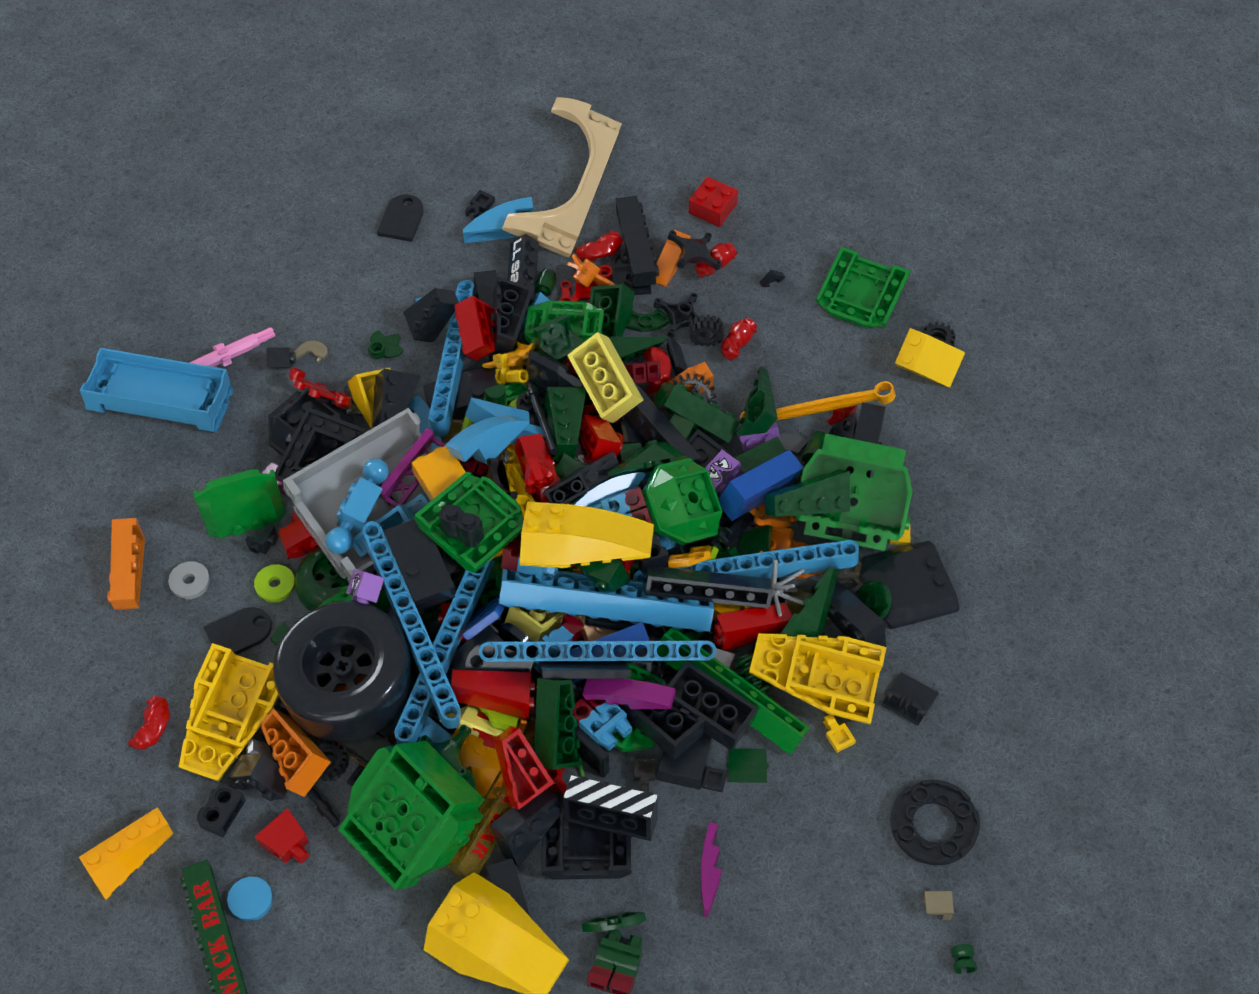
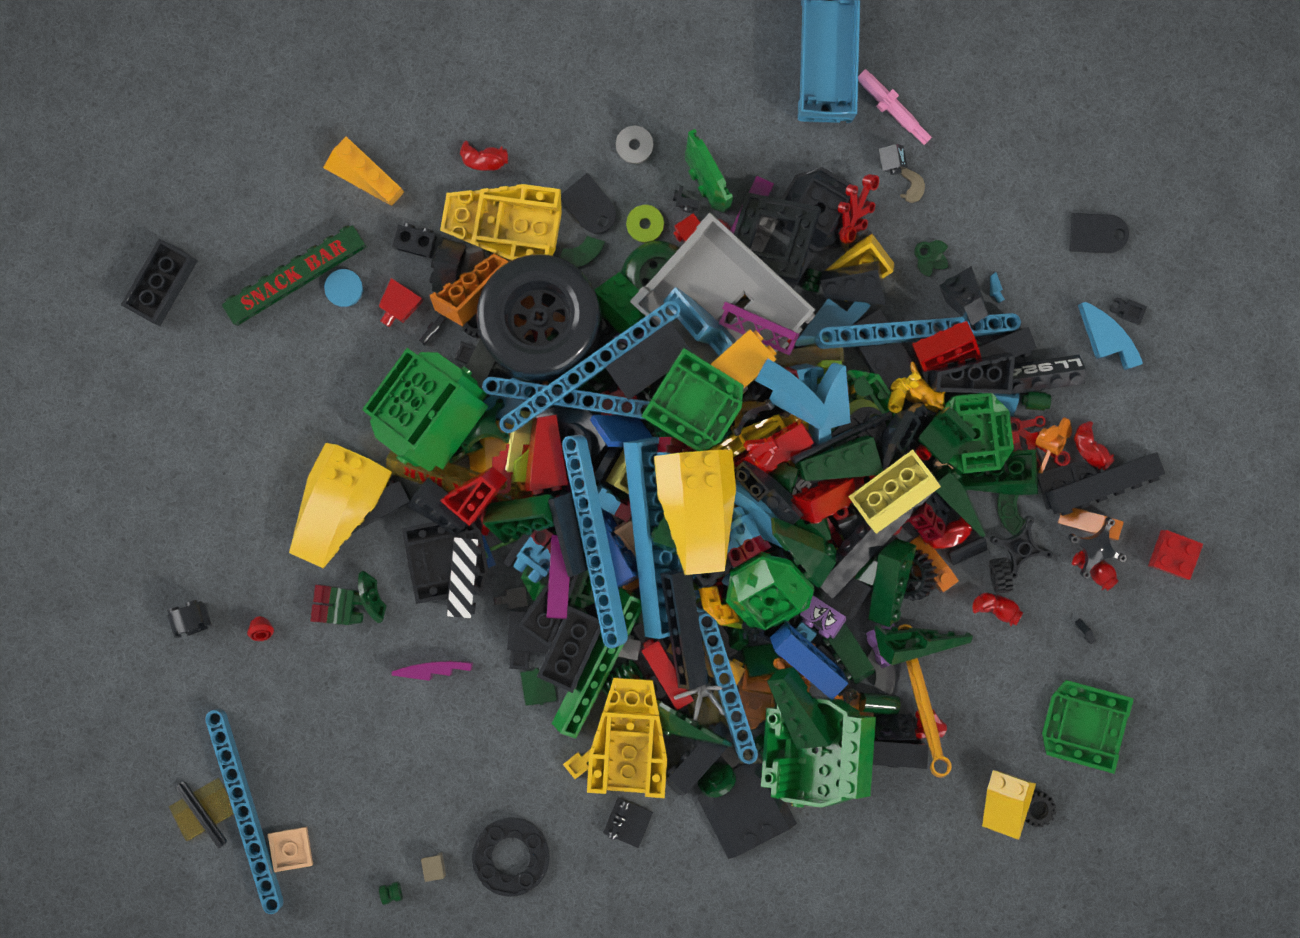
camera: 85 degrees right, 30 degrees up
(126, 563) = (634, 83): orange wedge -> none
(357, 506) = (704, 288): dark azure brick -> none
(364, 587) = (617, 317): medium lavender brick -> none
(461, 525) = (679, 390): black brick -> none
(561, 226) = (1109, 403): tan piece -> none

